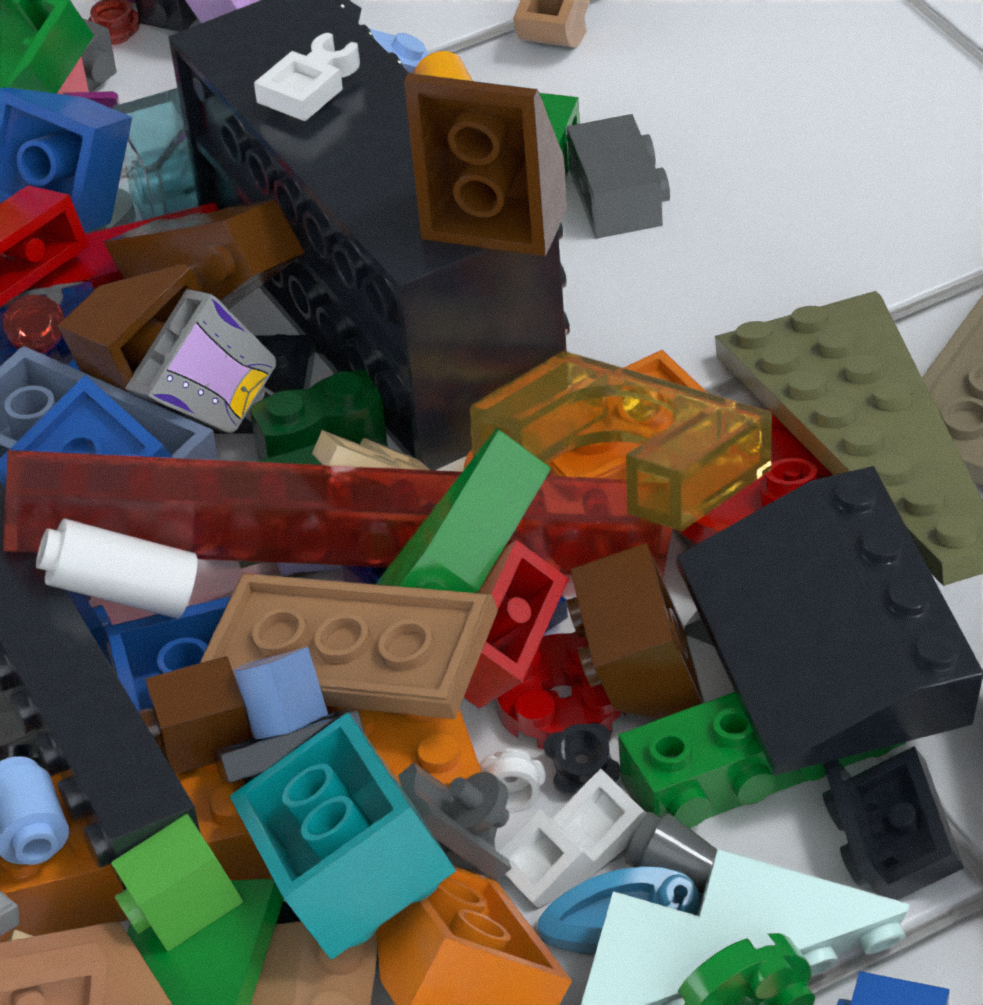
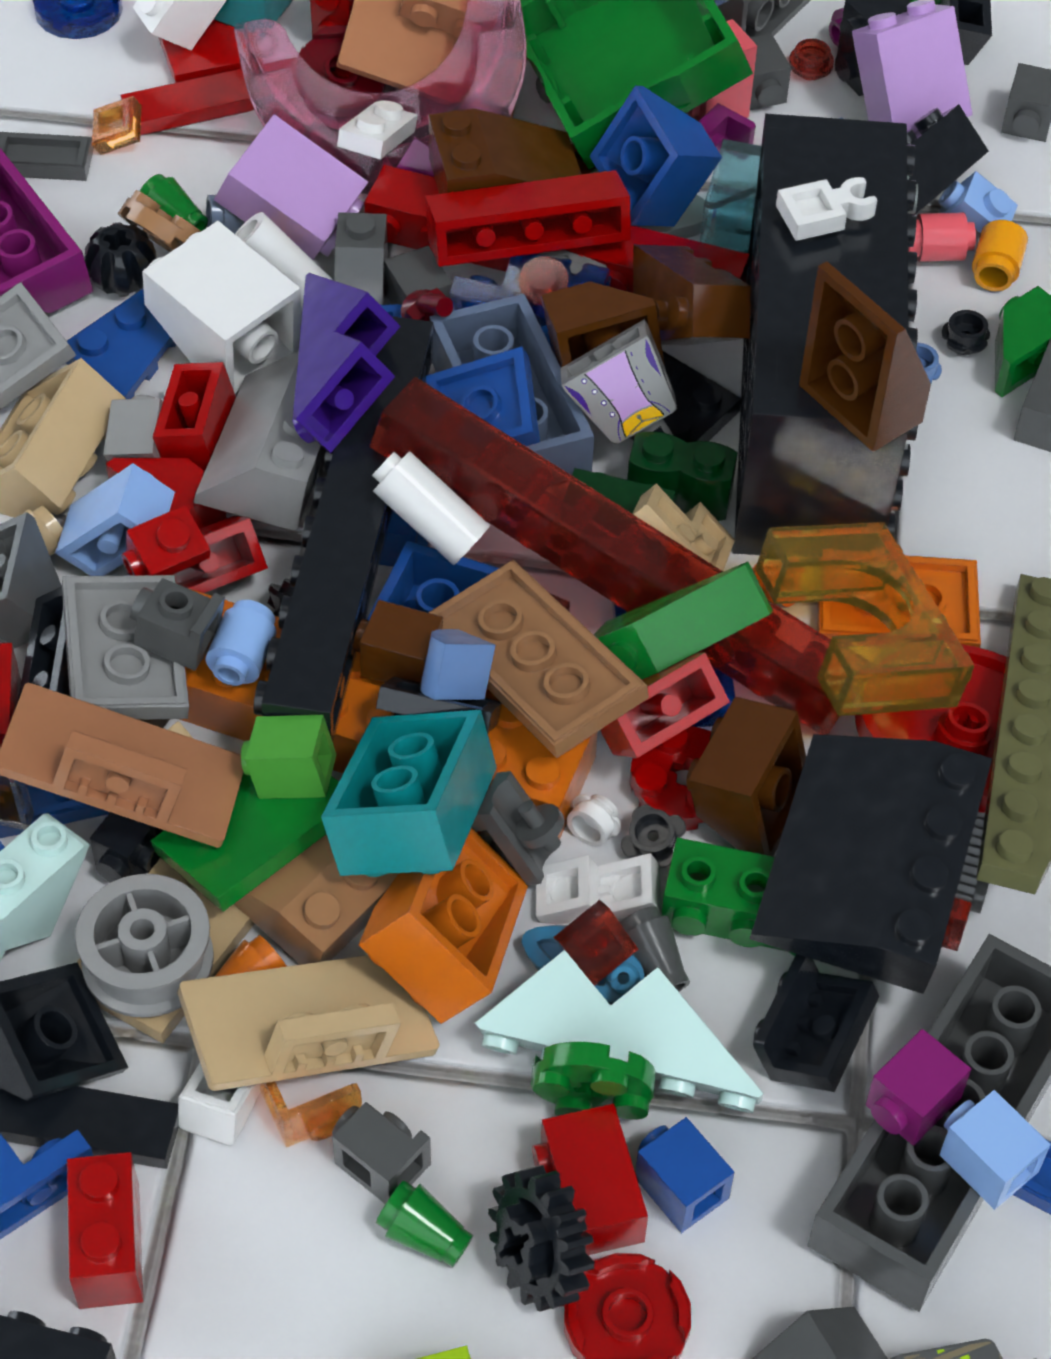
camera: 30 degrees right, 10 degrees up
(631, 865) = (596, 942): none -> clear red plate

